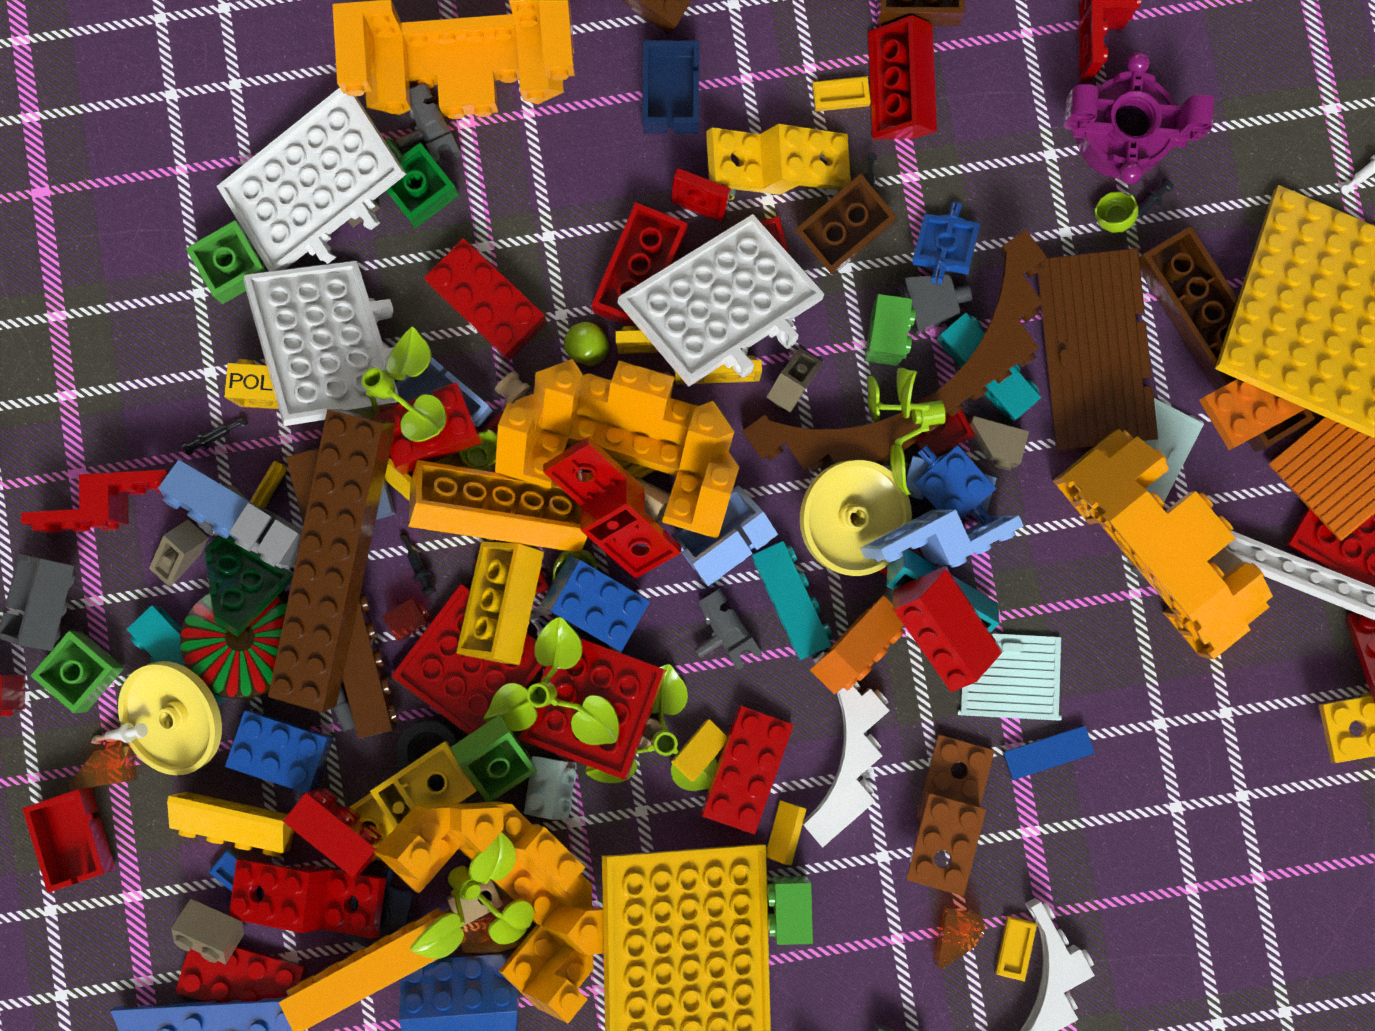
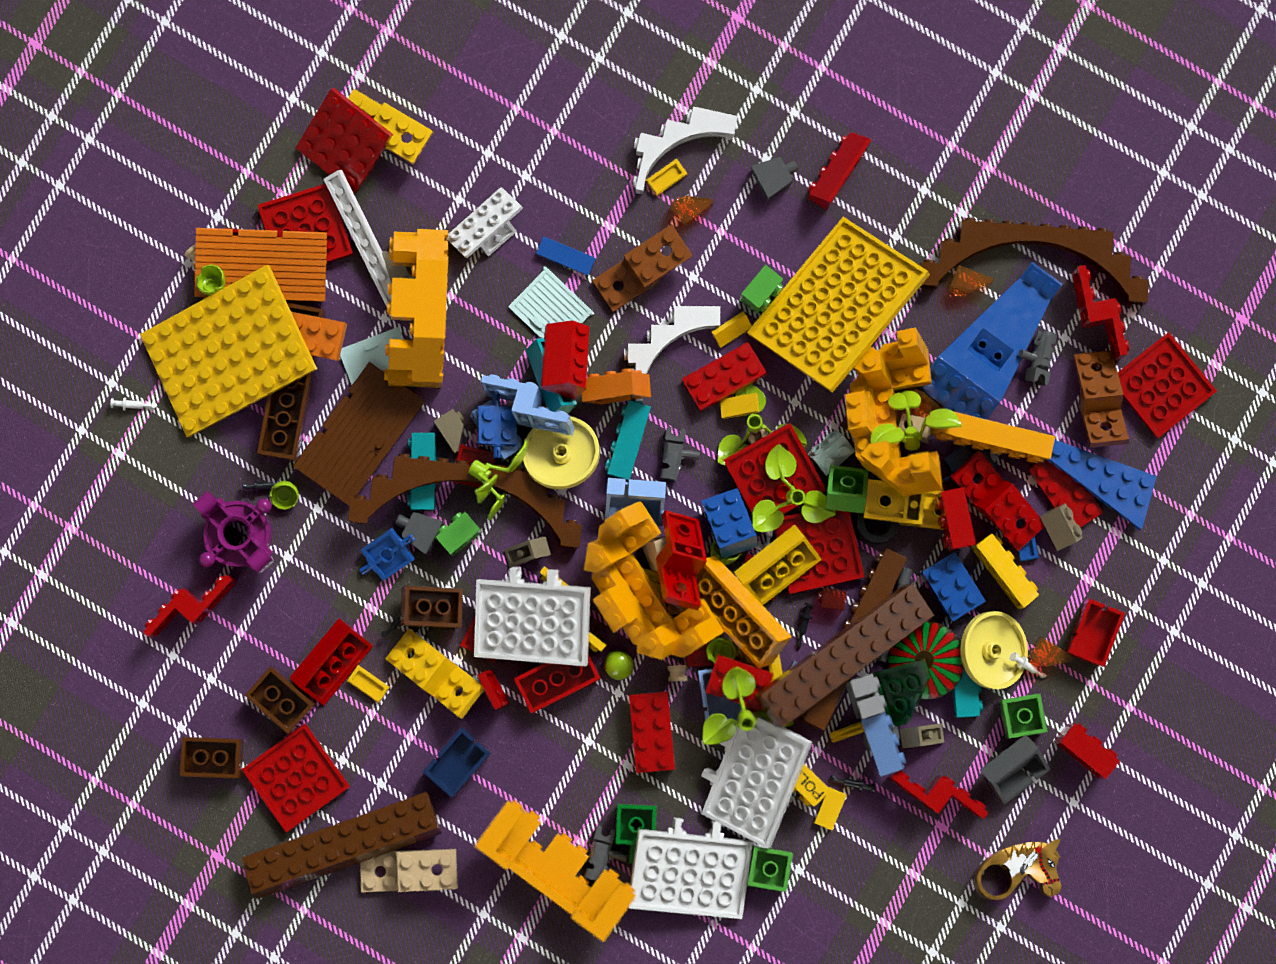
camera: 145 degrees left, 0 degrees up
(213, 381) = (830, 809): none -> yellow tile
(1169, 708) = (486, 226): none -> white bracket

